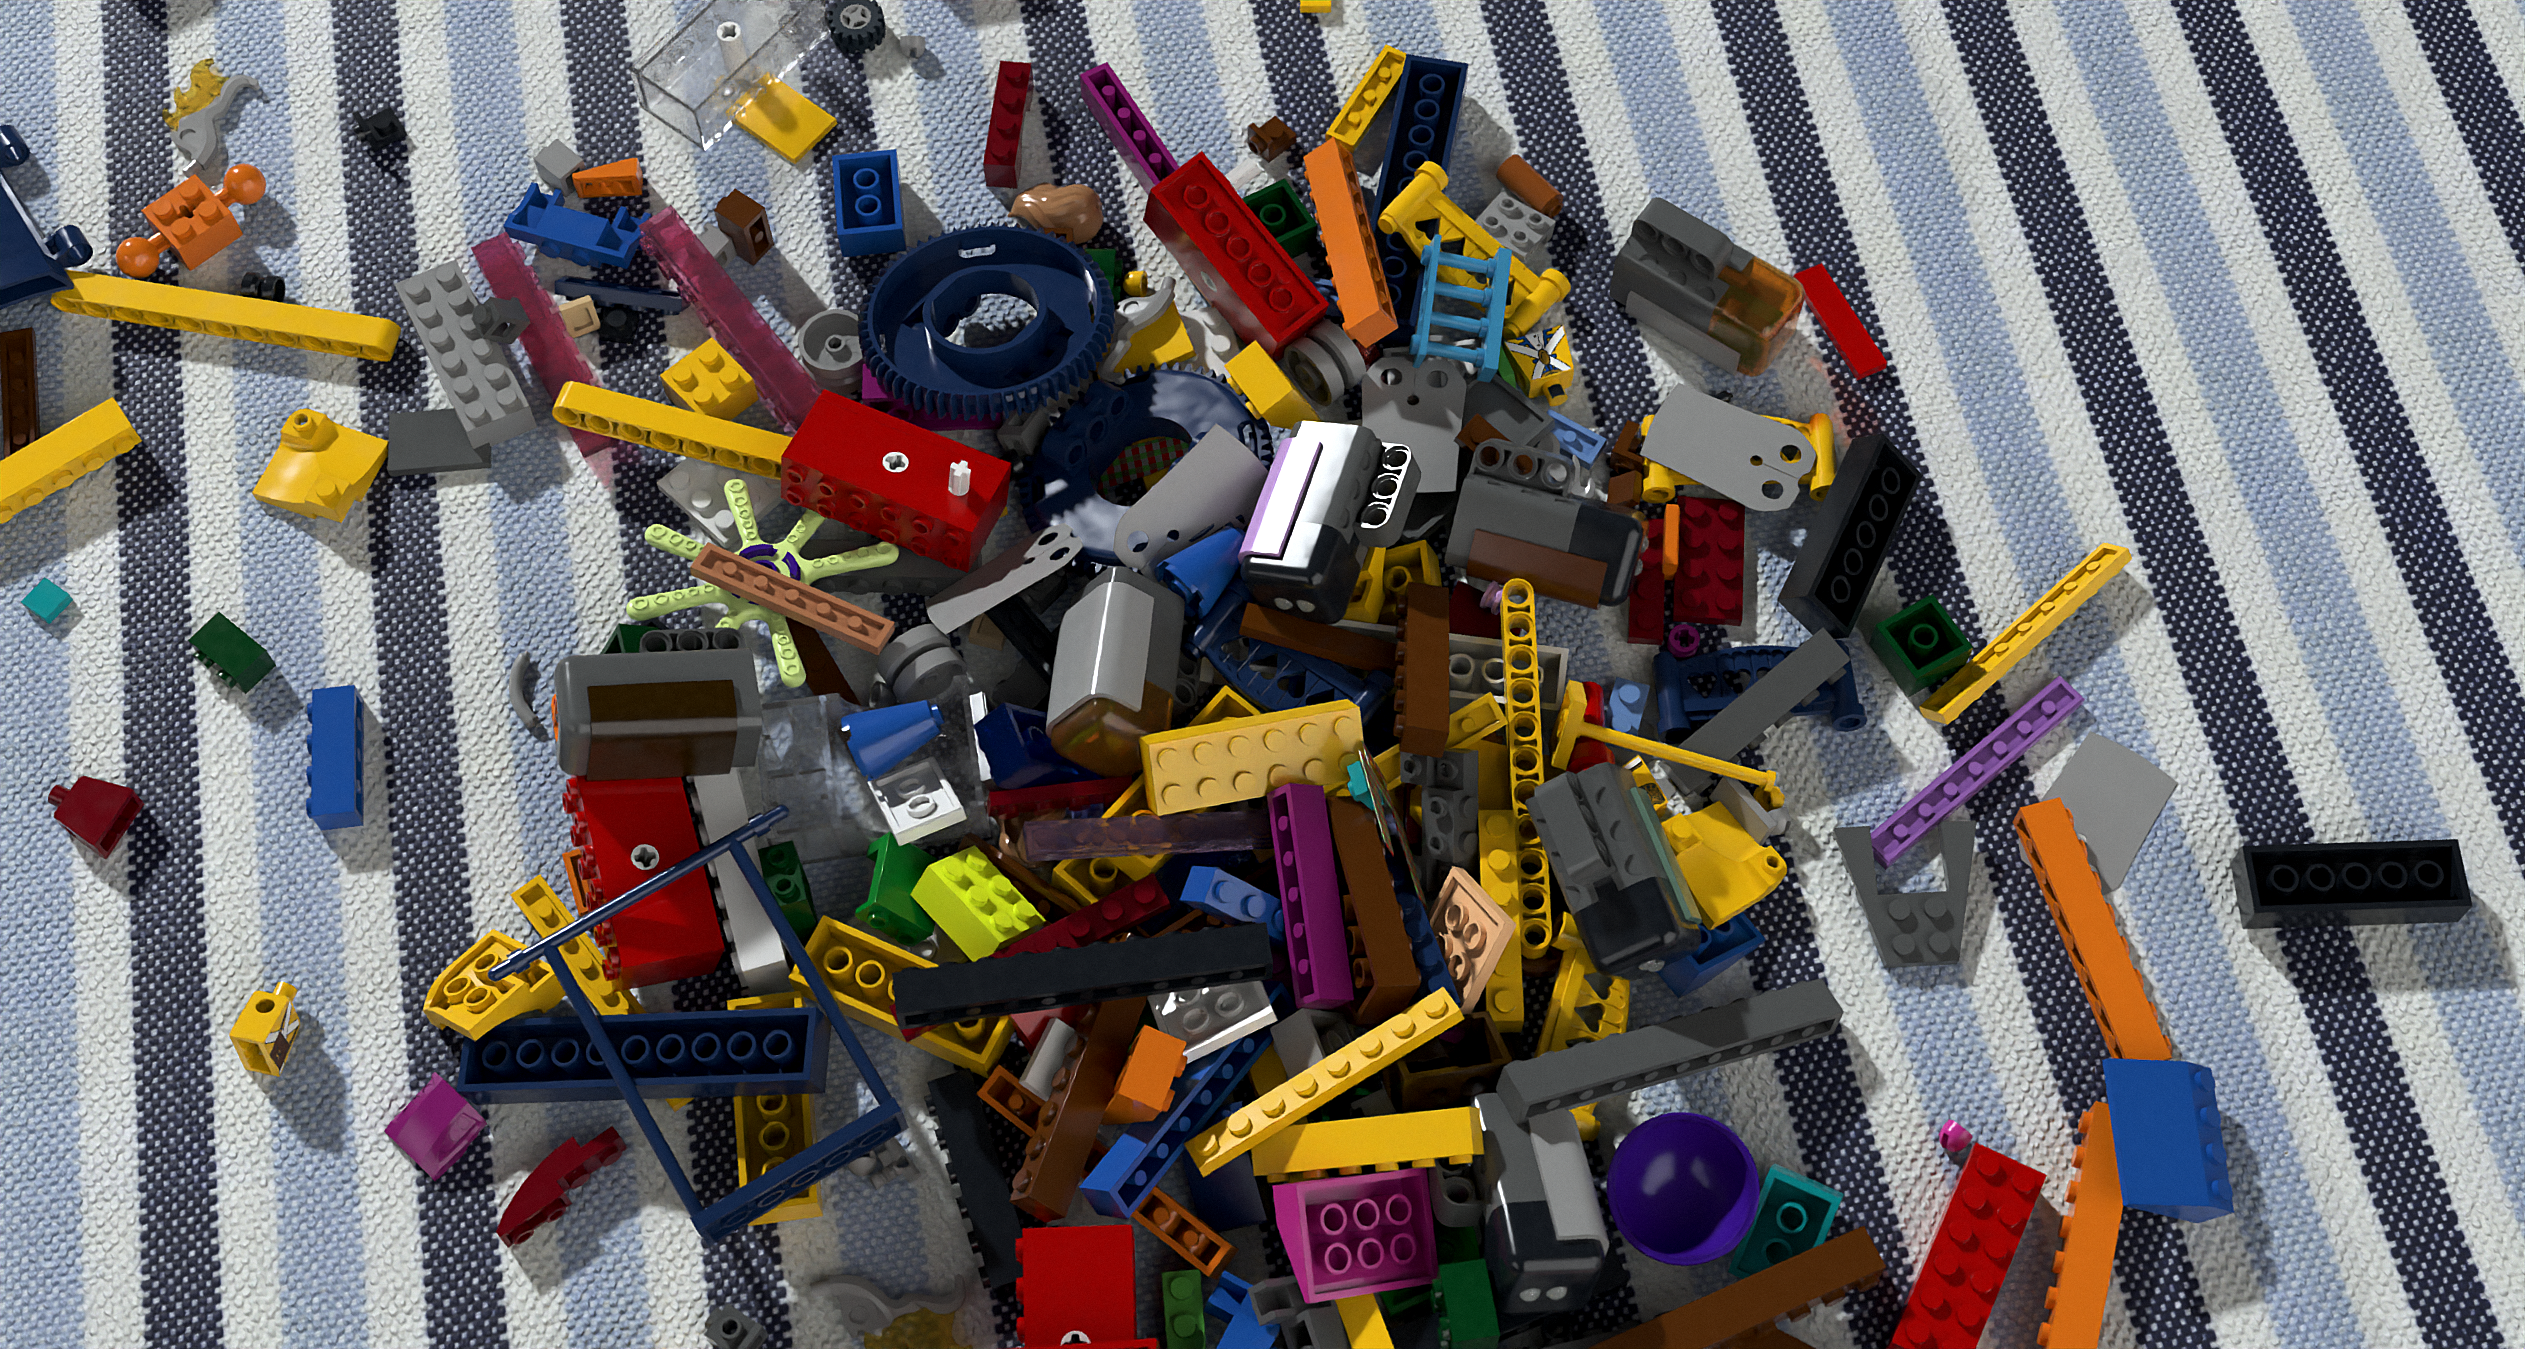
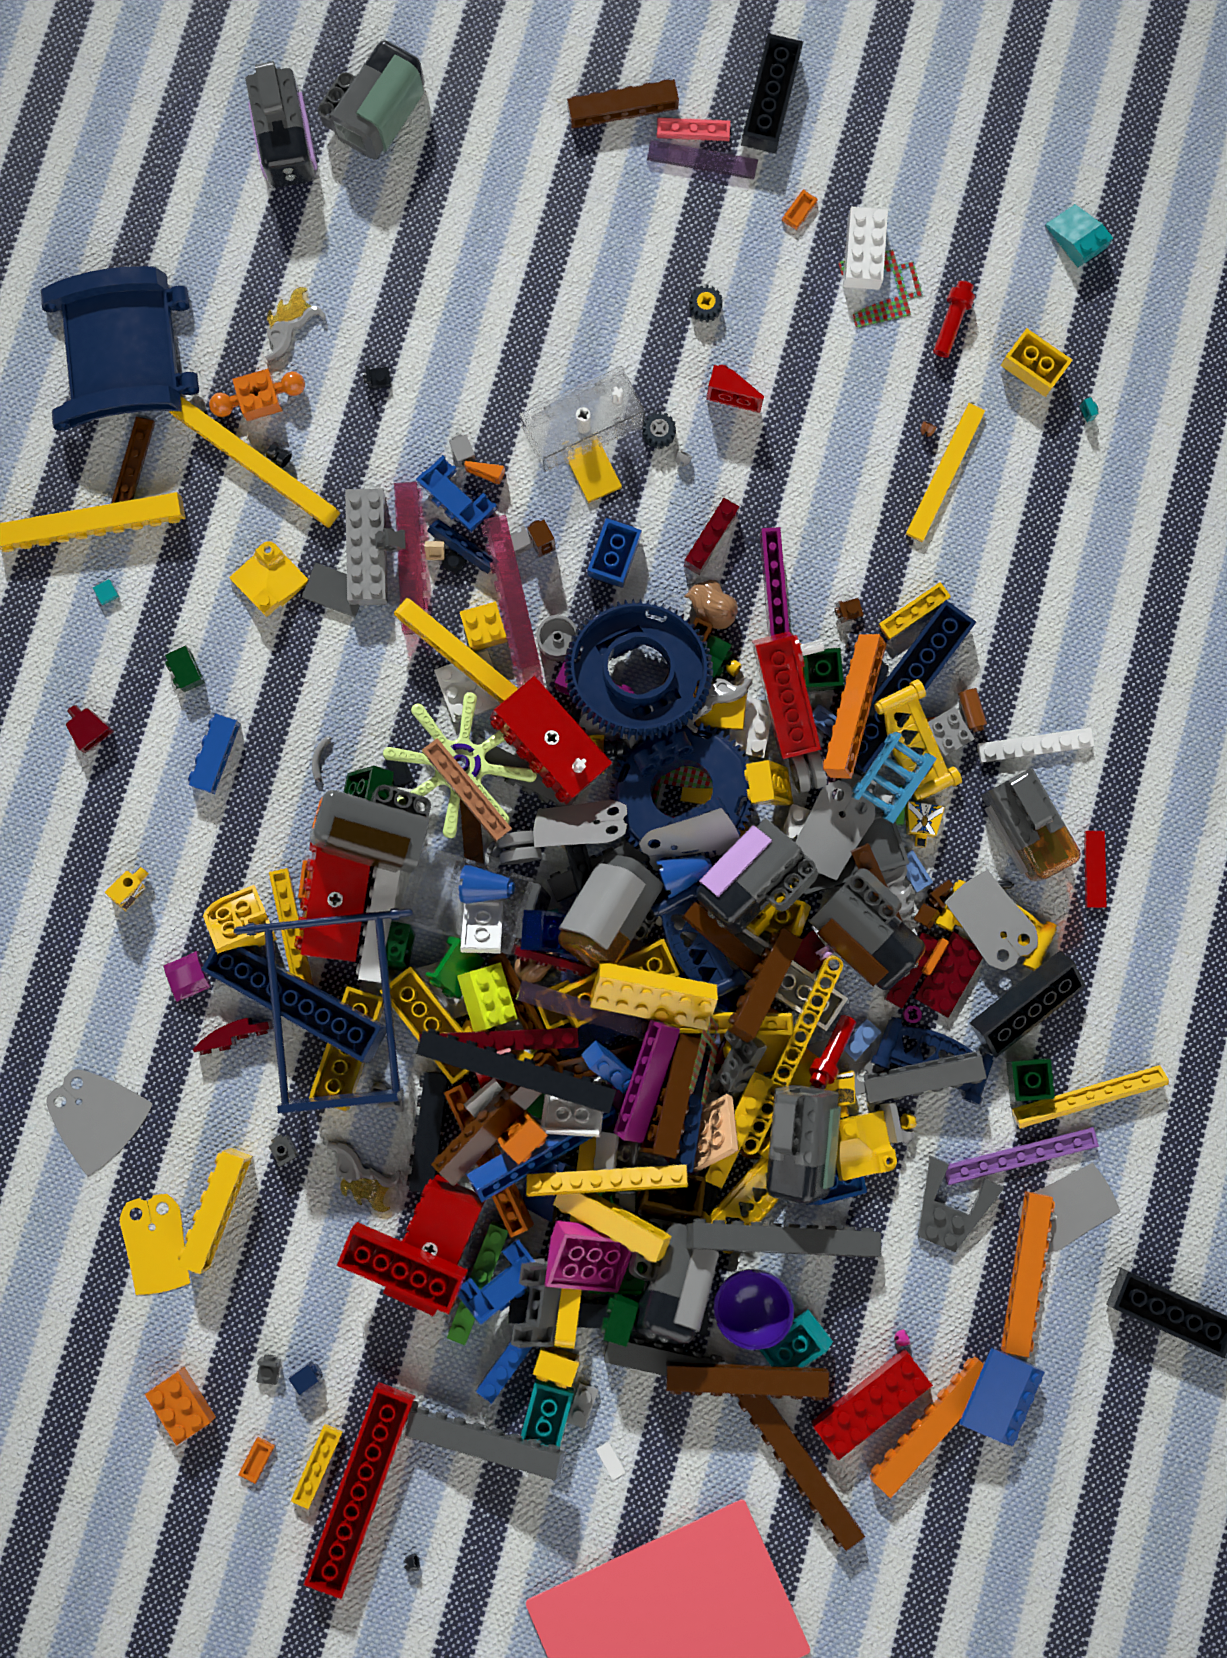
camera: 25 degrees right, 20 degrees up
(1359, 786) = (696, 1038): teal plate -> none
(1571, 725) = (825, 1045): yellow tile -> none
(1671, 185) = (1035, 745): none -> white plate

